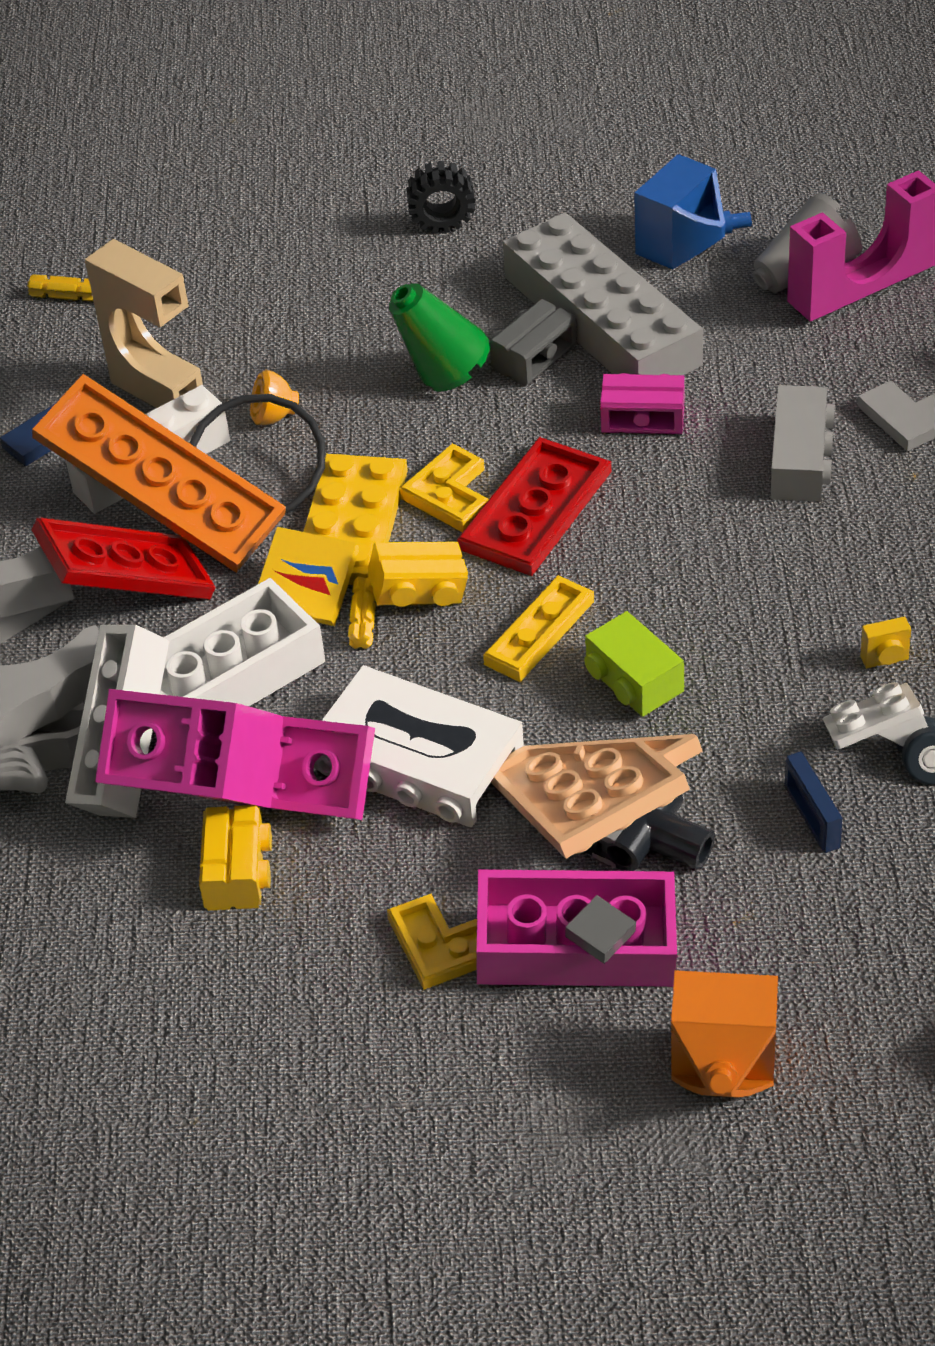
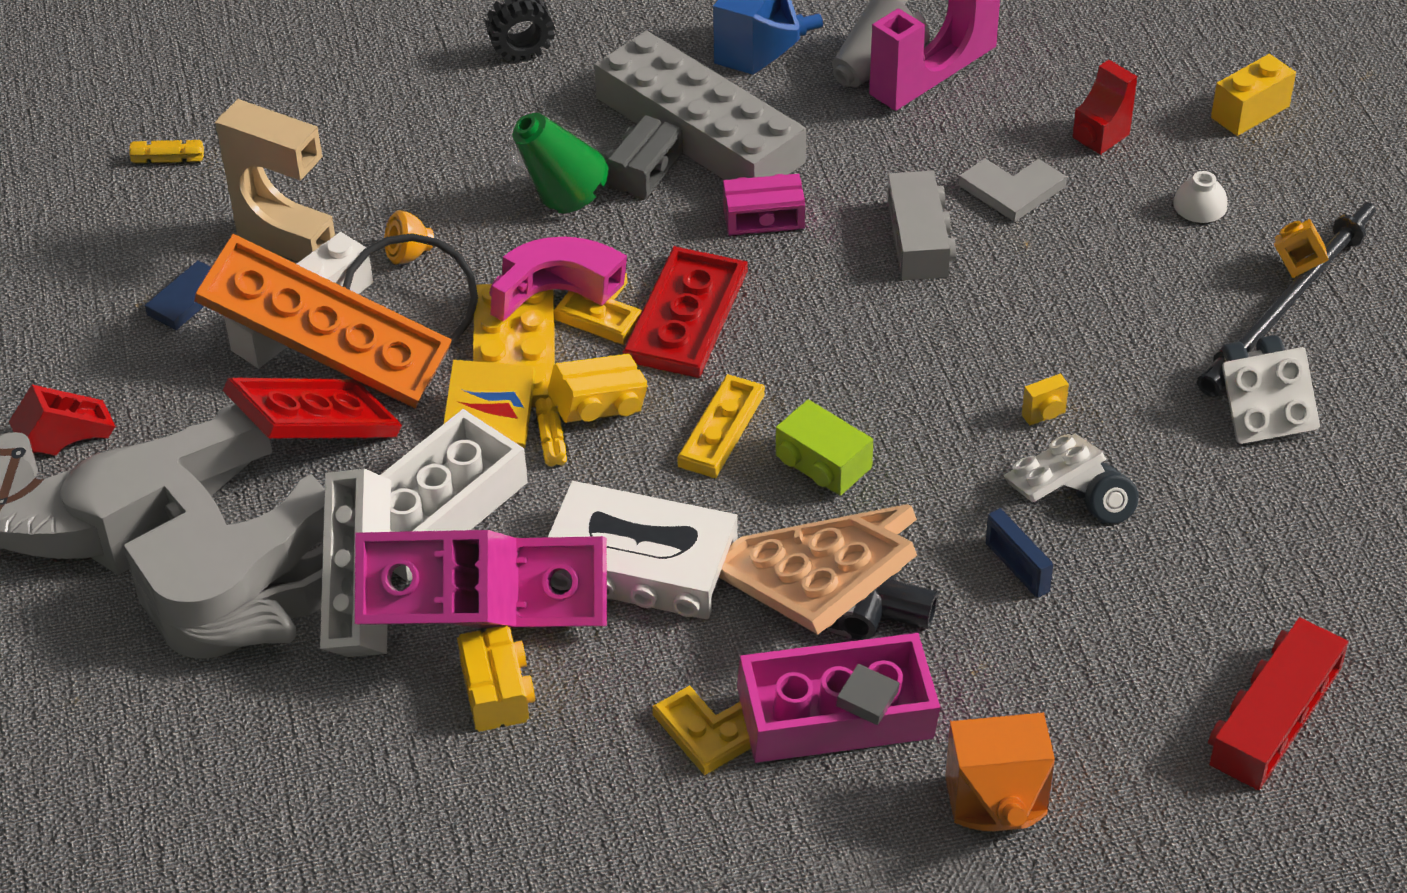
camera: 15 degrees left, 0 degrees up
(405, 441) = (557, 264): none -> dark pink arch

